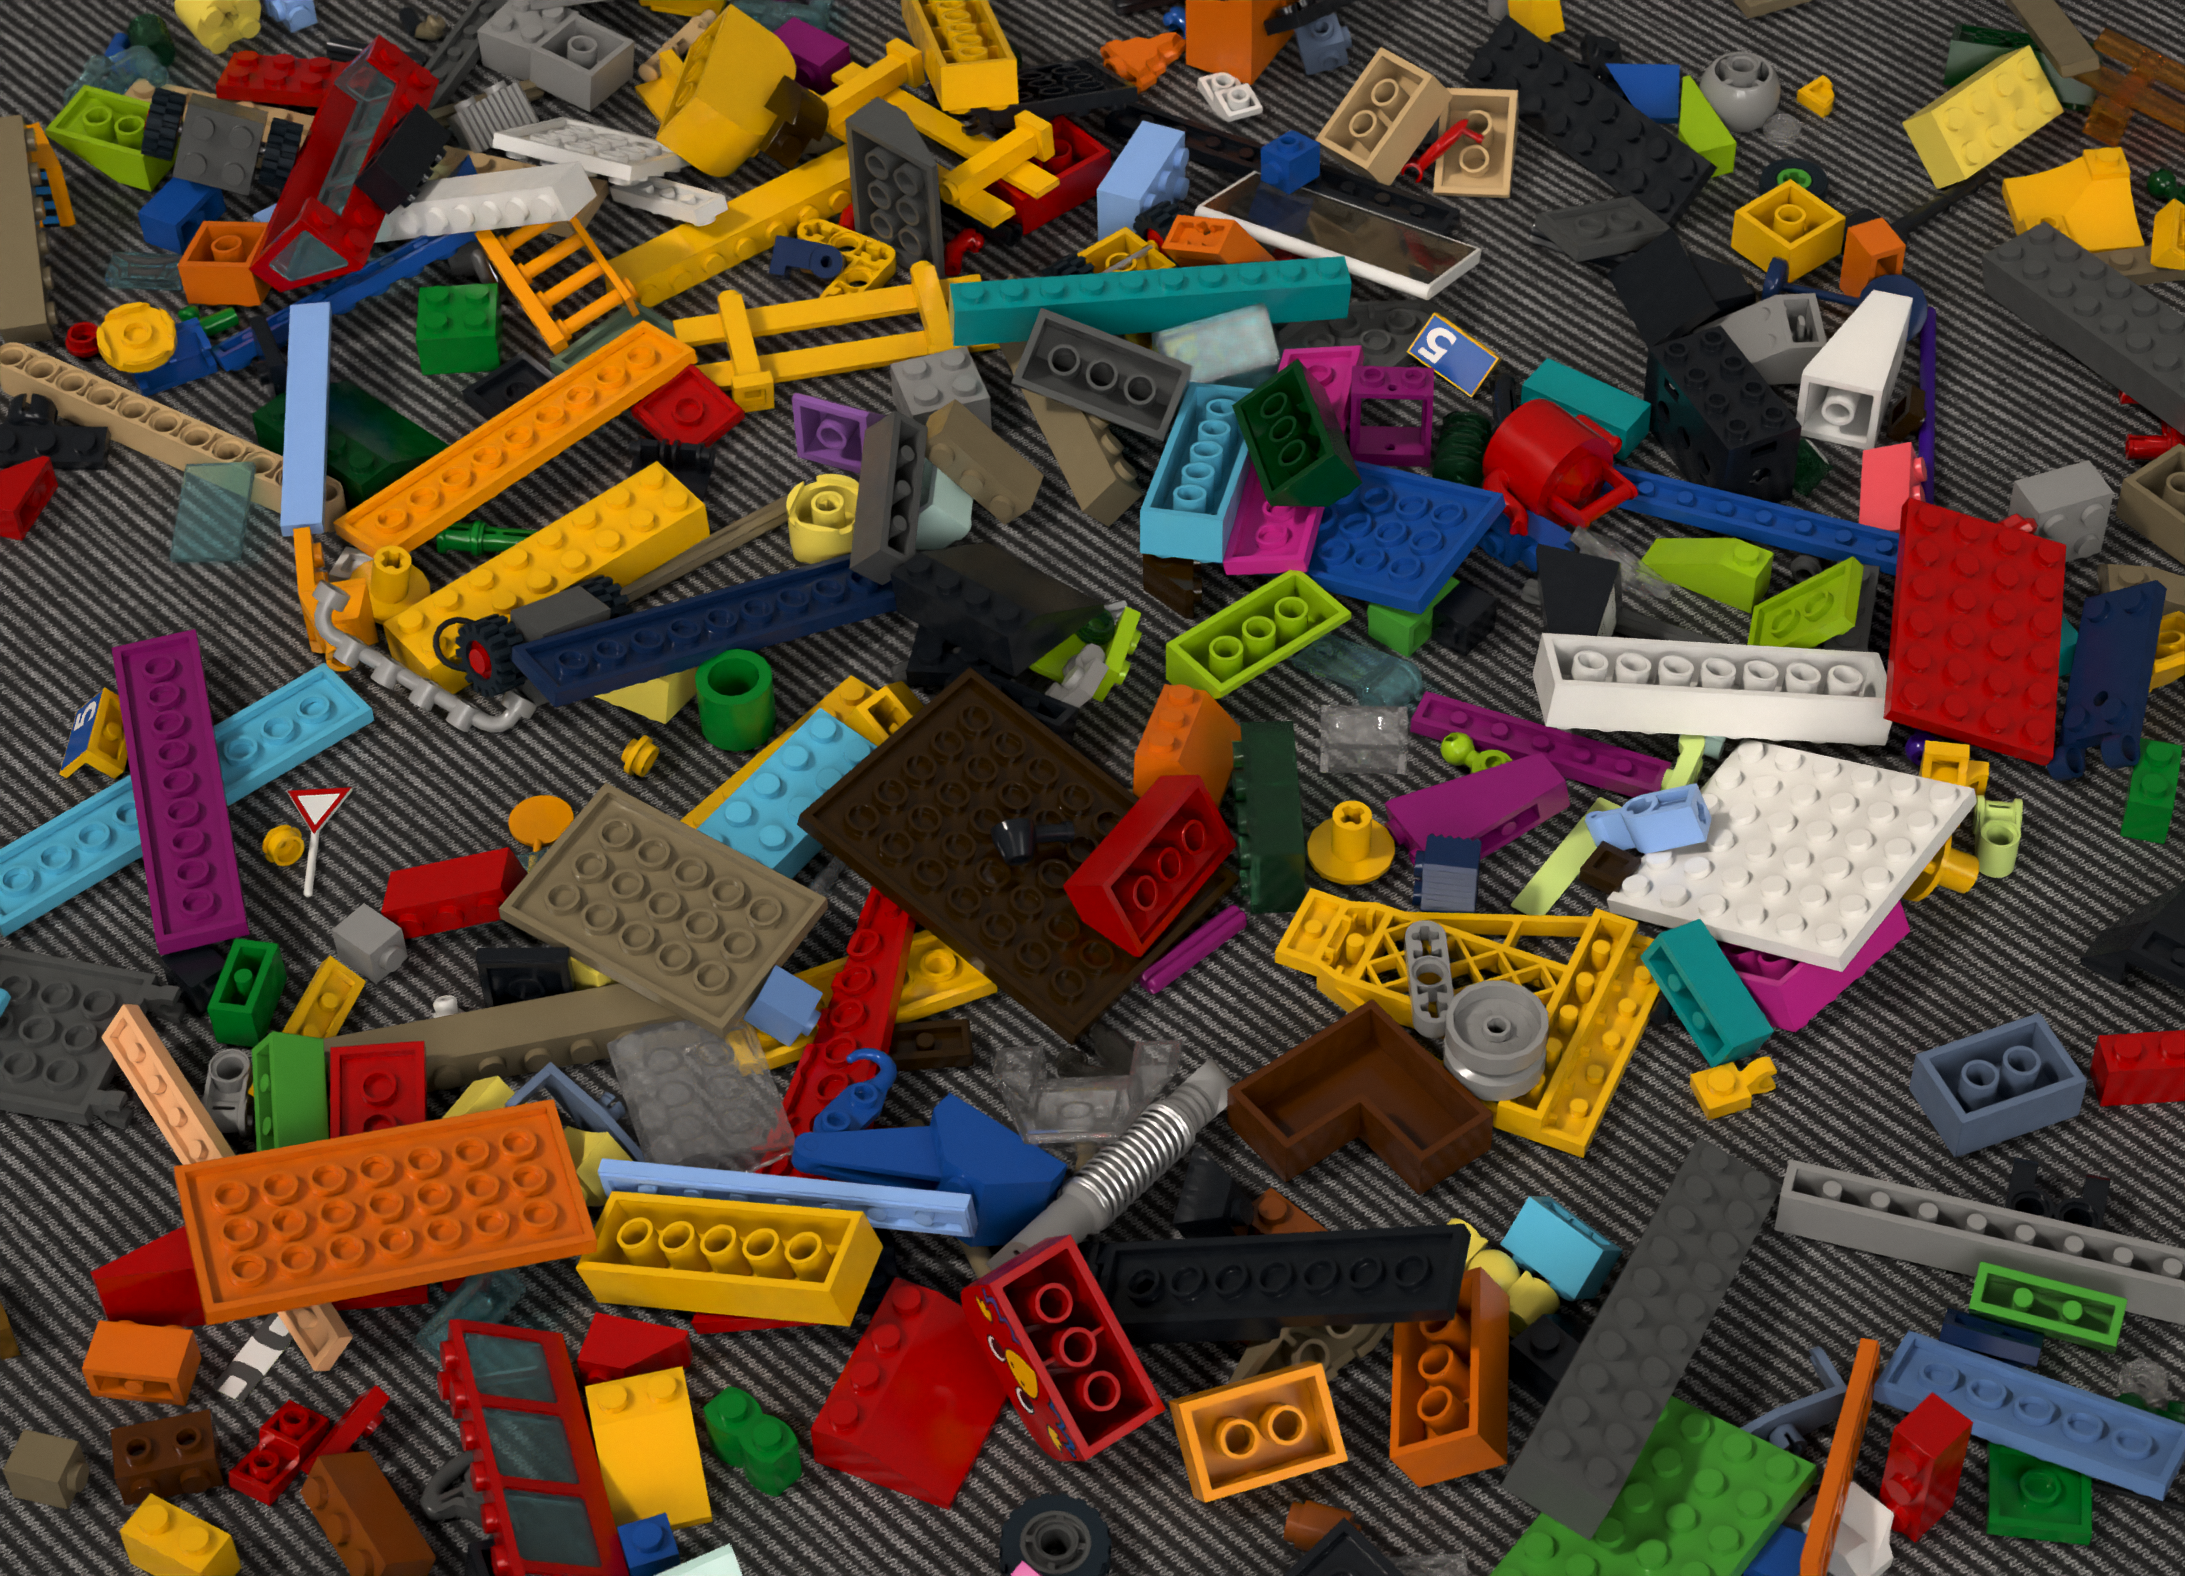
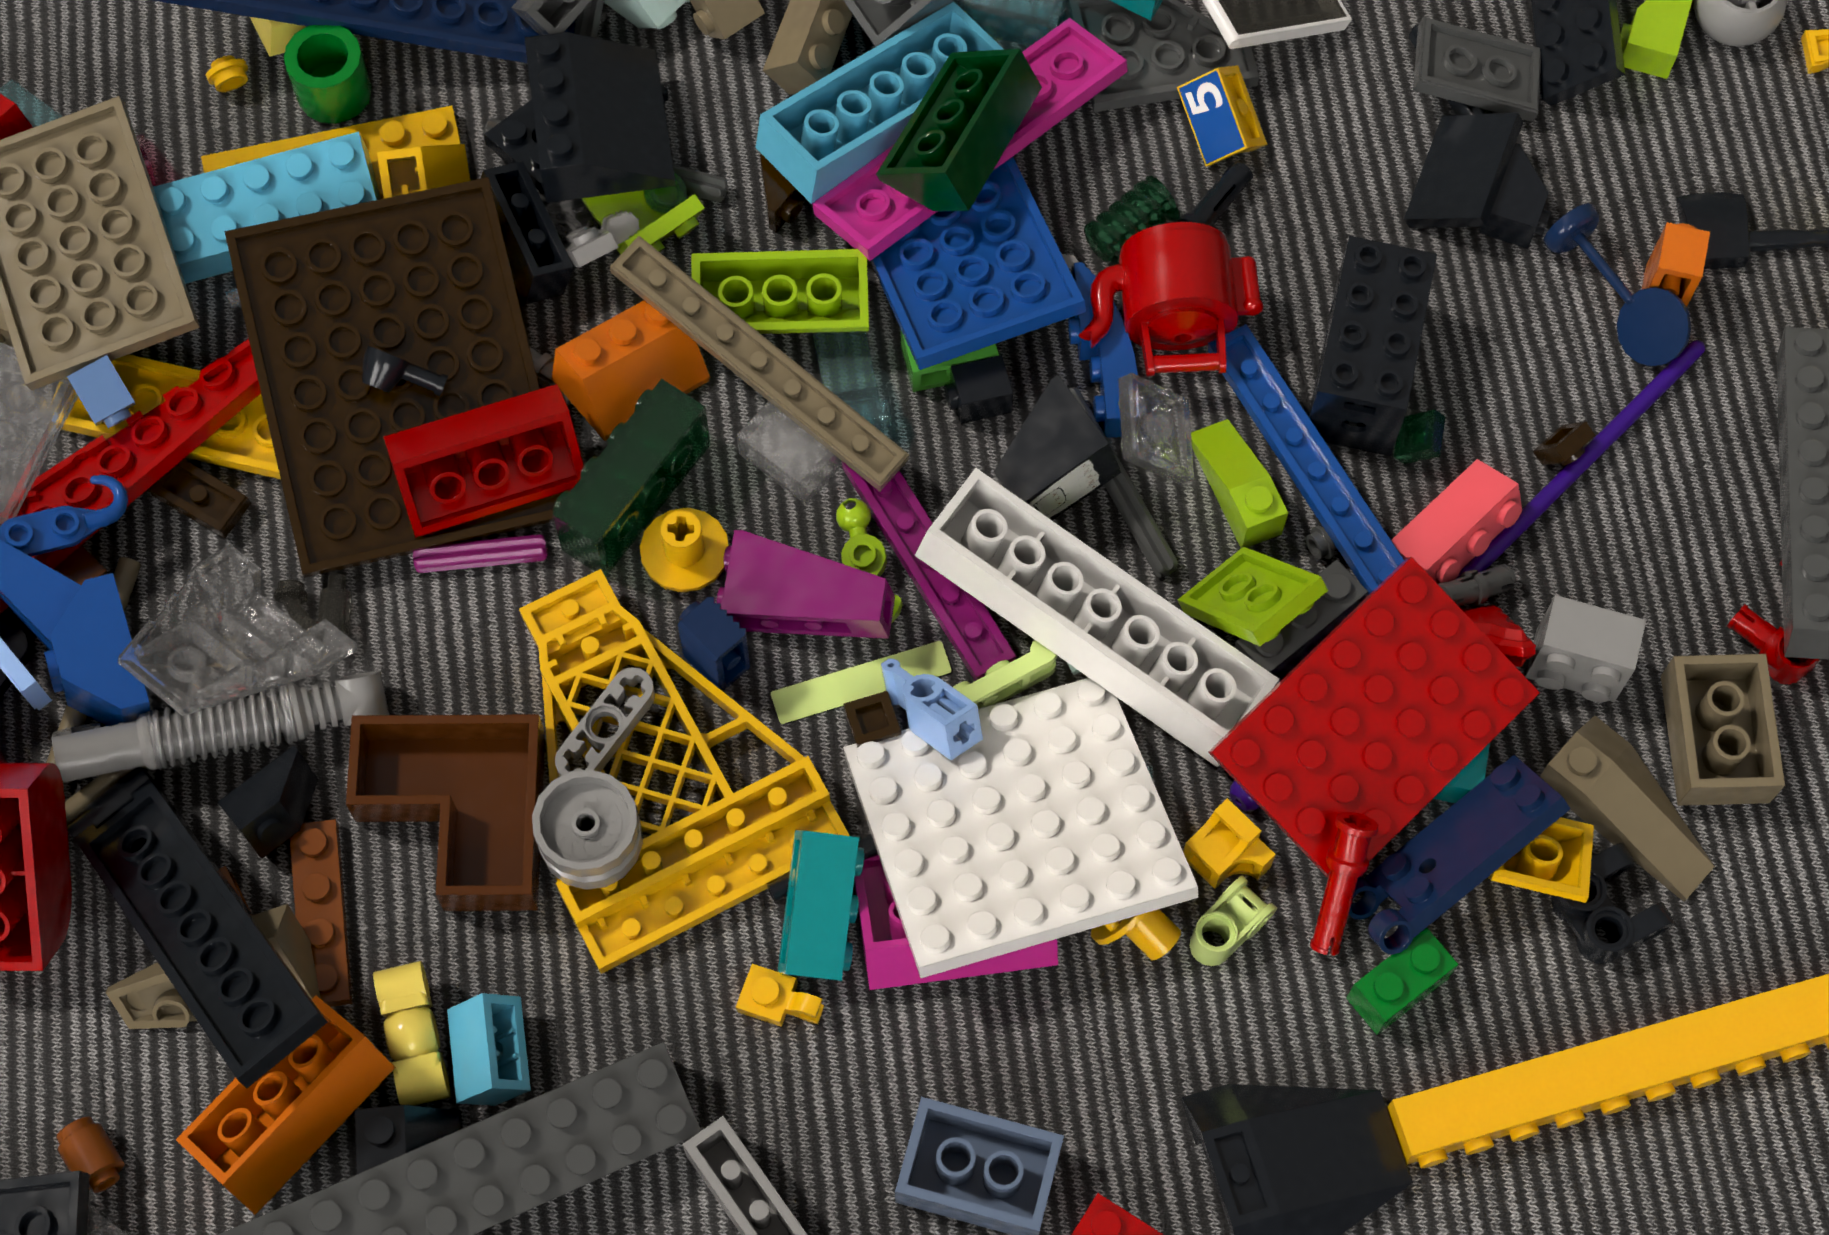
camera: 35 degrees right, 20 degrees up
(540, 820) = (117, 76): light orange piece -> none
(1257, 1431) = (101, 1038): light orange brick -> none
(1294, 680) = (759, 363): none -> dark tan tile
(1410, 444) = (1105, 154): magenta window -> none
(1581, 394) = (1282, 247): teal brick -> none
(1777, 335) = (1503, 285): light grey slope -> none
(1782, 130) = (1750, 72): clear plate -> none
(1790, 226) = (1637, 180): yellow brick -> none
(1801, 171) = (1693, 114): black bush -> none
(1855, 372) = (1551, 374): white slope -> none
(2049, 726) = (1346, 864): none -> red pin

